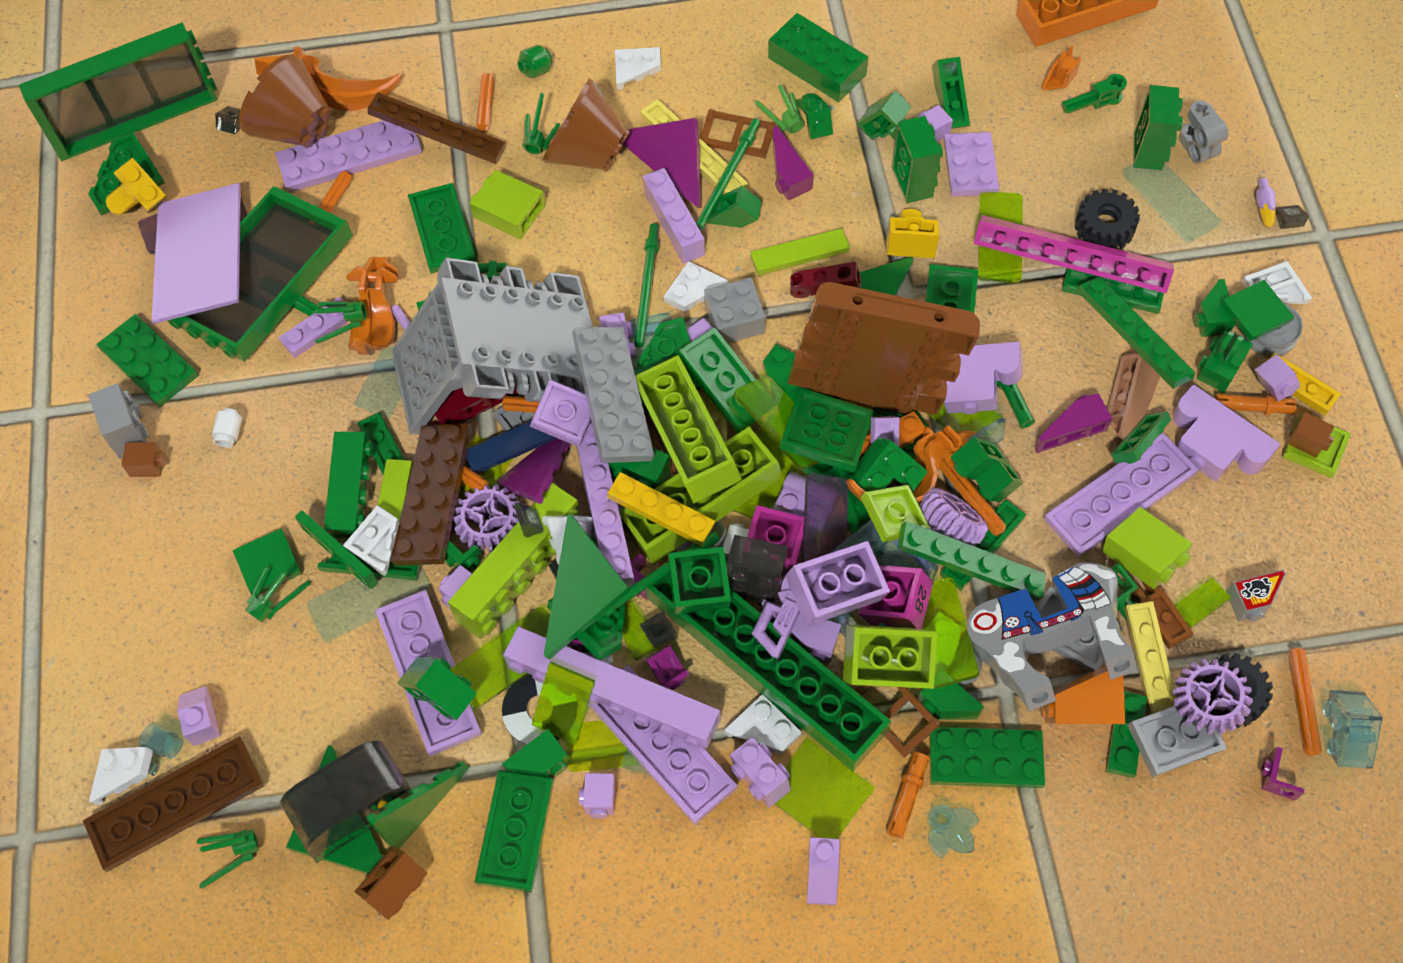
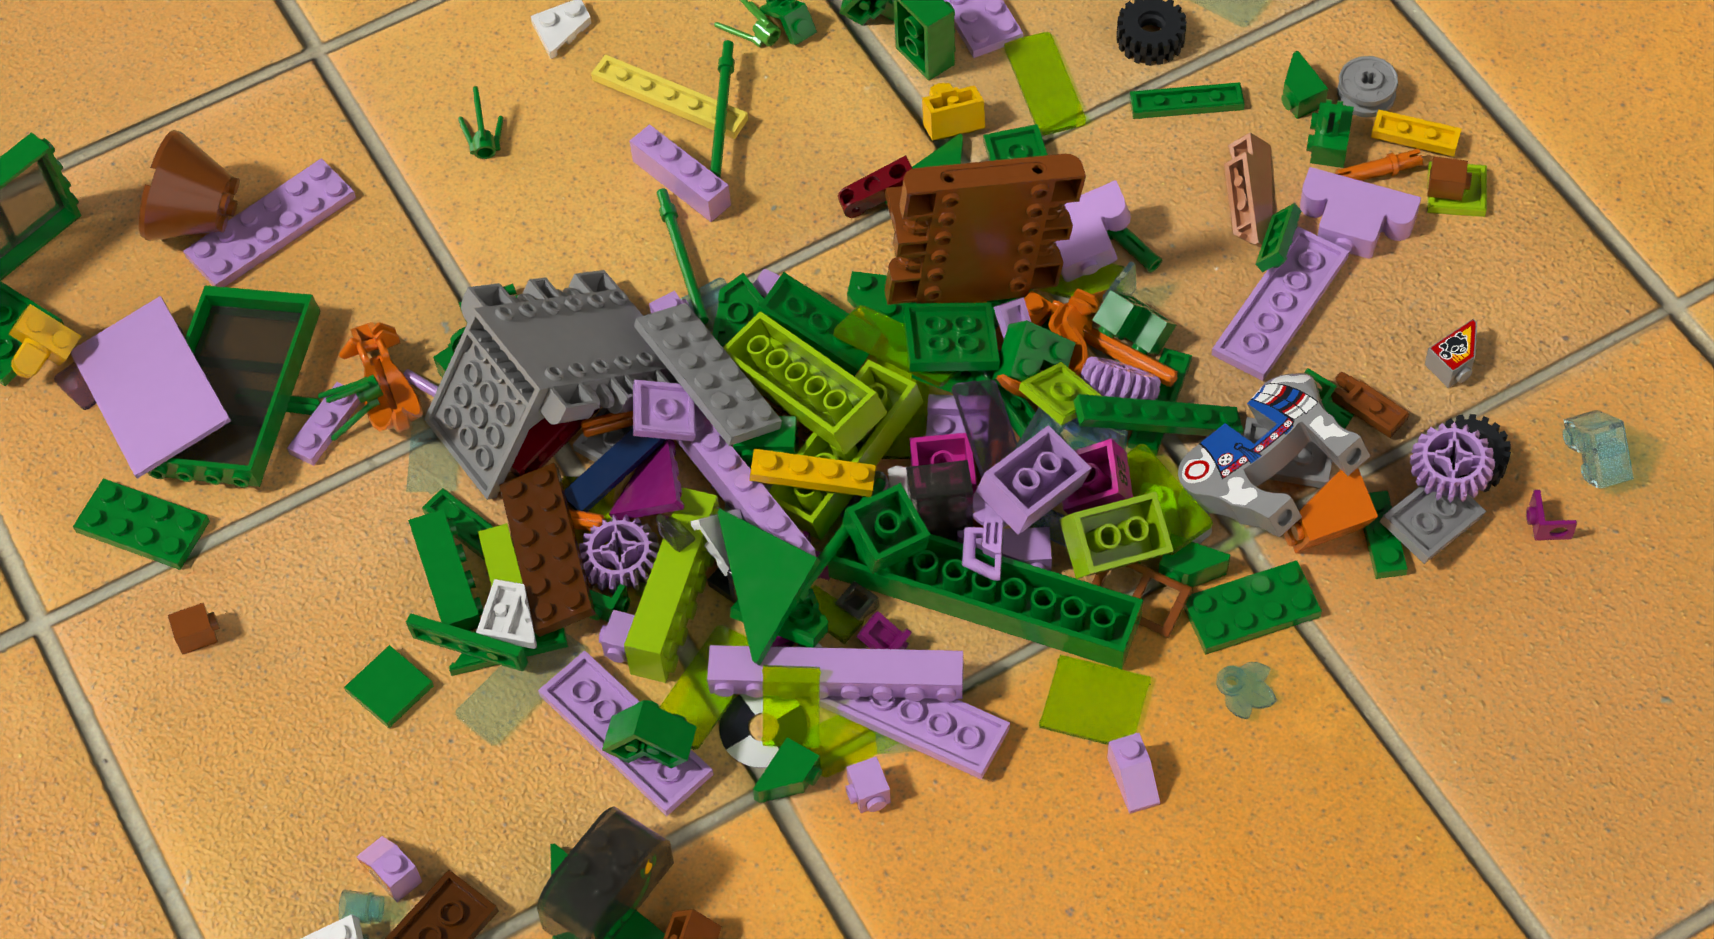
camera: 20 degrees left, 5 degrees down
(118, 417) = (147, 592): light grey brick -> none
(226, 428) = (274, 563): white brick -> none
(228, 120) = (109, 232): clear smoke slope -> none
(261, 606) = (406, 732): green plant -> none
(336, 191) = (276, 268): orange axle -> none
(338, 92) = (239, 158): orange piece -> none
(405, 815) = (677, 865): green tile -> none
(436, 128) = (364, 163): reddish brown plate -> none
(441, 226) = (418, 270): green tile -> none
(485, 102) = (405, 119): orange axle -> none
(507, 204) = (484, 220): lime brick -> none
(514, 831) = (793, 856): green tile -> none
(534, 61) = (444, 56): green head -> none
(588, 133) = (547, 112): dark orange cone -> none
(674, 148) = (640, 101): magenta tile -> none
(690, 285) = (734, 241): white wing -> none
(735, 310) = (794, 248): light grey brick -> none
(736, 209) = (747, 143): green slope -> none
(762, 153) = (711, 80): dark orange window -> none
(764, 777) = (1028, 701): lavender brick -> none
(765, 725) = (1011, 659): white wing -> none
(791, 173) = (788, 85): magenta slope -> none
(799, 251) = (835, 167): lime tile -> none
(911, 784) = (1188, 672): orange pin -> none
(1074, 254) = (1131, 75): dark pink brick -> none
(1082, 419) = (1209, 242): magenta slope -> none
(1136, 332) = (1230, 133): green plate -> none
(1147, 548) = (1330, 344): lime brick -> none
(1150, 656) = (1383, 460): light yellow tile -> none
(1202, 602) = (1406, 380): clear neon green tile -> none
(1257, 310) = (1344, 71): green tile -> none
(1277, 378) = (1392, 132): lavender brick -> none
(1283, 282) = (1353, 39): white wing -> none
(1305, 702) = (1544, 441): orange axle -> none

